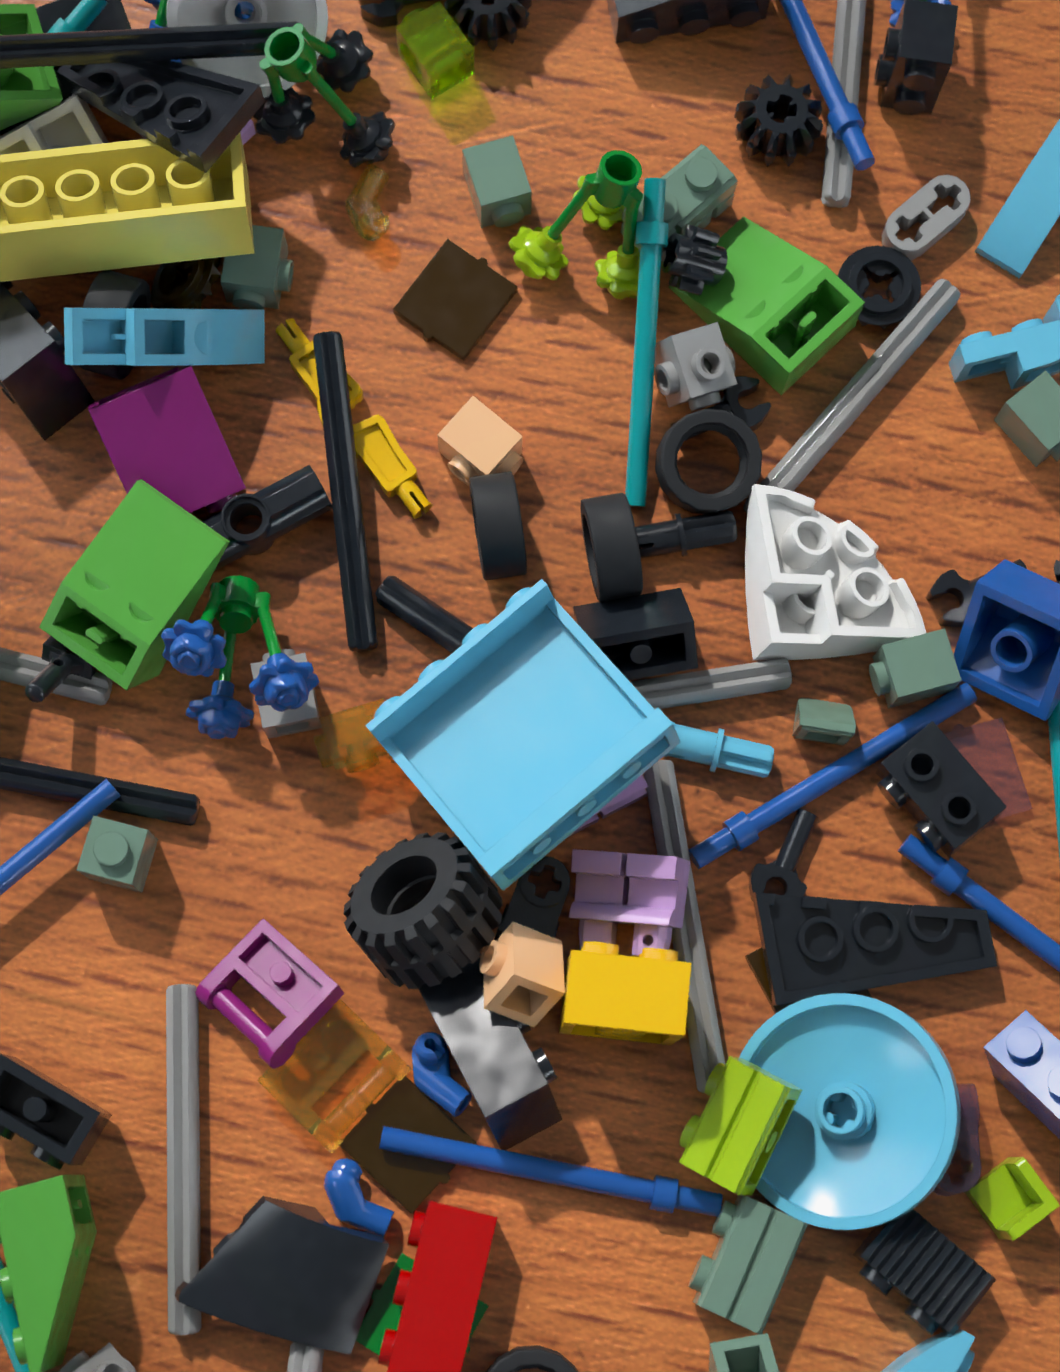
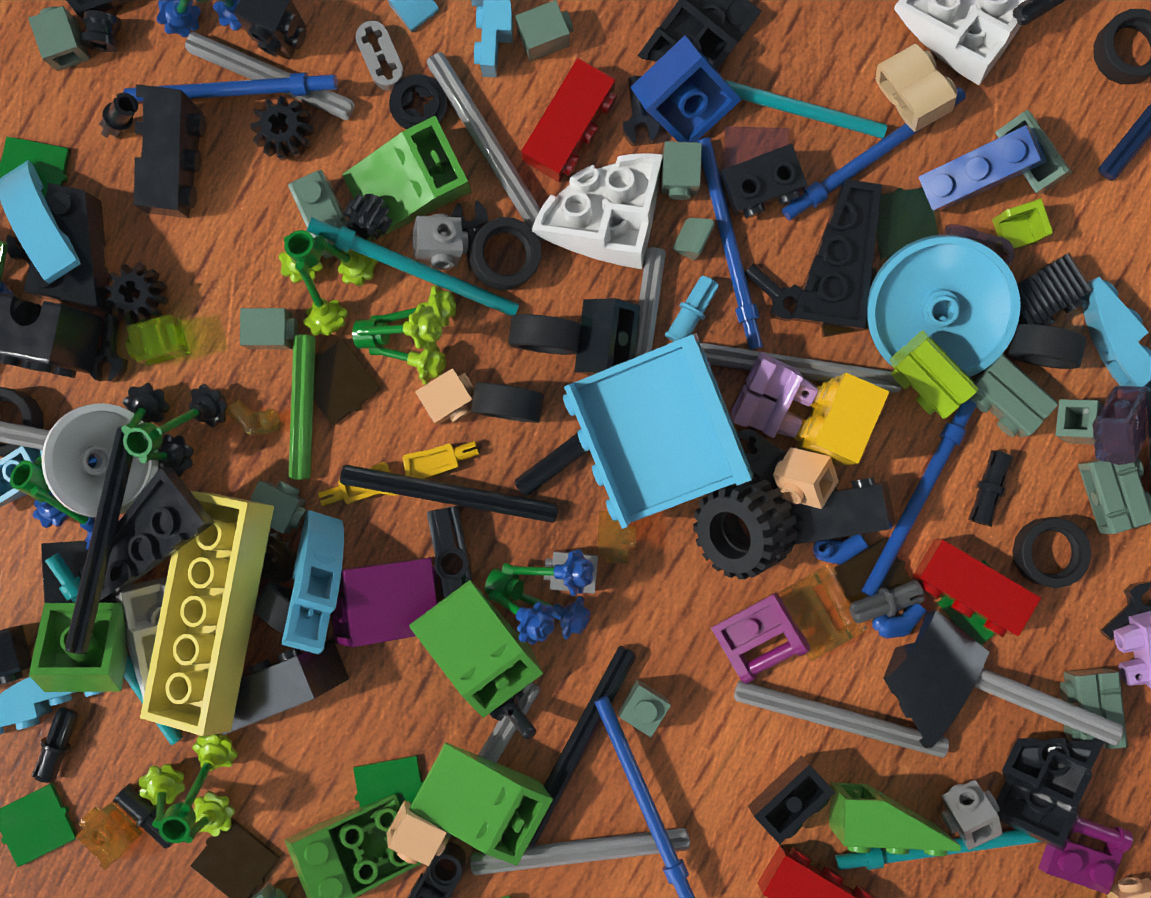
camera: 70 degrees left, 10 degrees up
(378, 1165) = (887, 602): none -> dark grey axle
(404, 260) = (302, 407): none -> bright green axle
(560, 370) = (423, 326): none -> lime plant
(600, 1279) = (991, 488): none -> black pin
(686, 533) = (546, 283): black axle -> none
(841, 1289) = (1047, 346): none -> black tyre
(928, 493) = (569, 121): none -> red brick
(960, 1016) = (903, 219): none -> clear green piece

